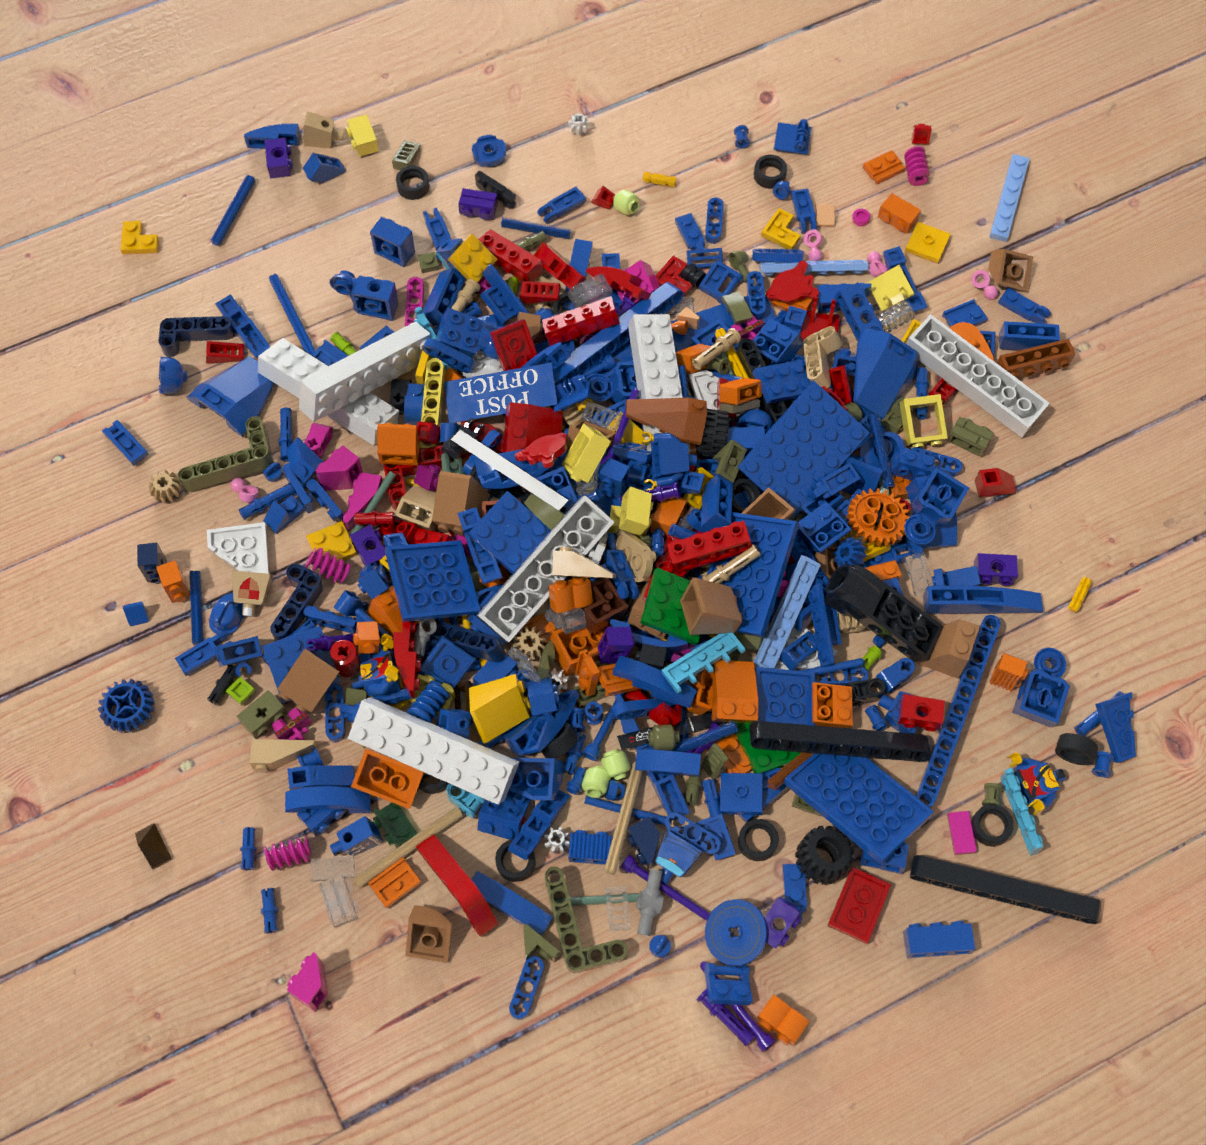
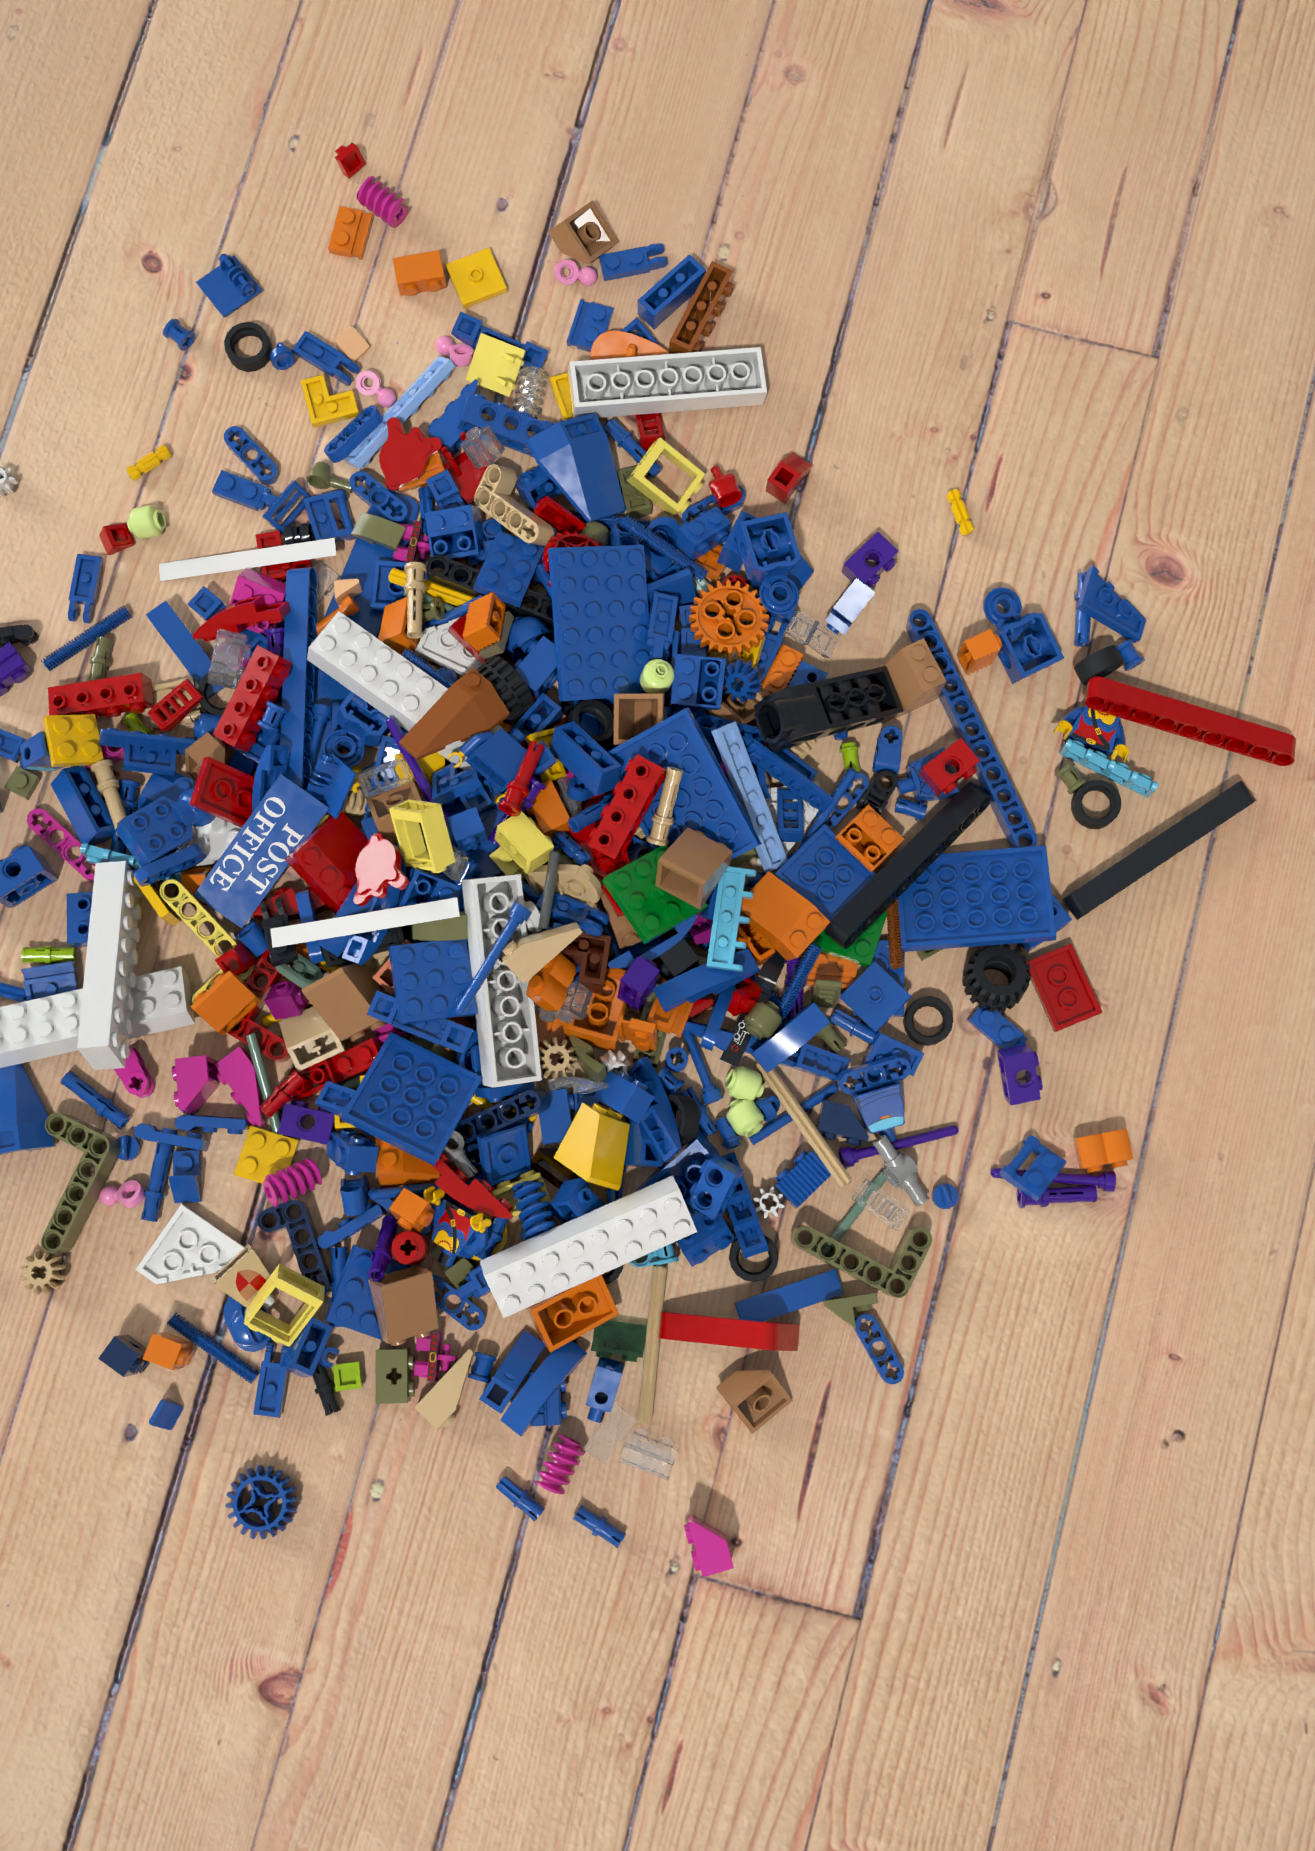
camera: 50 degrees left, 15 degrees up
(153, 846) = (433, 1588): dark brown slope -> none
(268, 613) = (294, 1285): none -> light yellow window
(303, 460) = (148, 1109): blue slope -> none
(394, 883) = (676, 1387): orange plate -> none
(398, 391) = (157, 944): black piece -> none
(413, 403) = (187, 943): blue brick -> none
(535, 793) = (719, 1190): none -> blue brick
(558, 266) = (161, 661): red slope -> none
(574, 335) = (272, 716): none -> blue bush
(588, 539) = (517, 916): none -> blue piece
(620, 545) = (549, 891): none -> dark grey bar
(656, 263) = (247, 559): none -> white sticker
(662, 479) = (519, 788): none -> red pin
(729, 459) = (548, 699): olive slope -> none
(752, 930) = (1009, 1105): blue piece -> none
(803, 503) = (657, 677): none -> yellowish green head
(837, 314) = (482, 446): none -> clear brick
(861, 217) = (386, 312): dark pink tile -> none
(938, 939) = (1152, 949): blue brick -> none
(950, 455) = (724, 488): none -> red piece
(961, 833) = (1078, 836): dark pink tile -> none
(970, 436) = (720, 449): olive brick -> none
(980, 600) = (888, 606): blue slope -> none
(1009, 198) = (501, 151): light blue plate -> none
(1103, 836) = (1190, 721): none -> red beam

